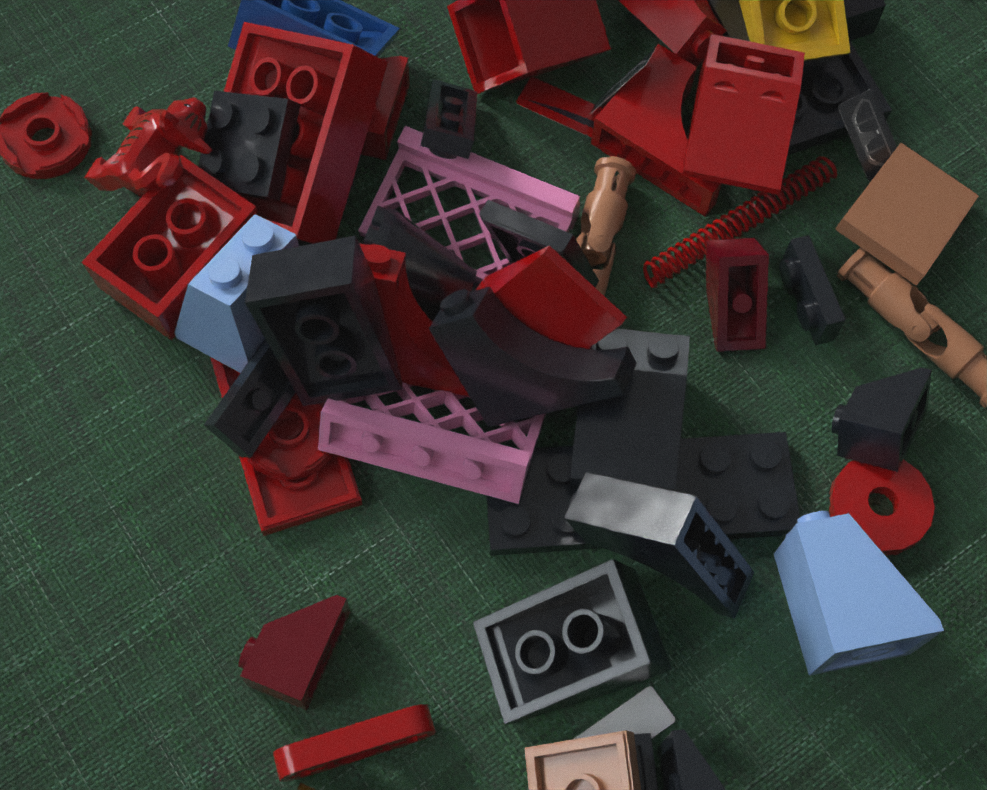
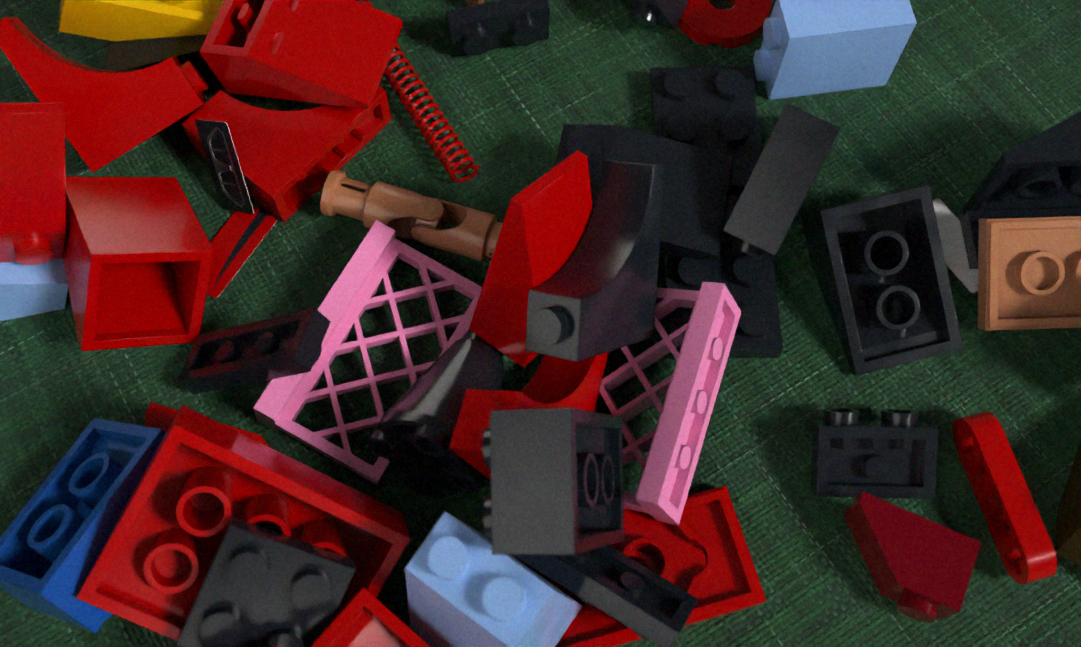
camera: 85 degrees left, 0 degrees up
(392, 624) = (873, 455): none -> black bracket
(523, 235) = (456, 251): black tile -> none
(737, 293) = (493, 89): dark red slope -> none

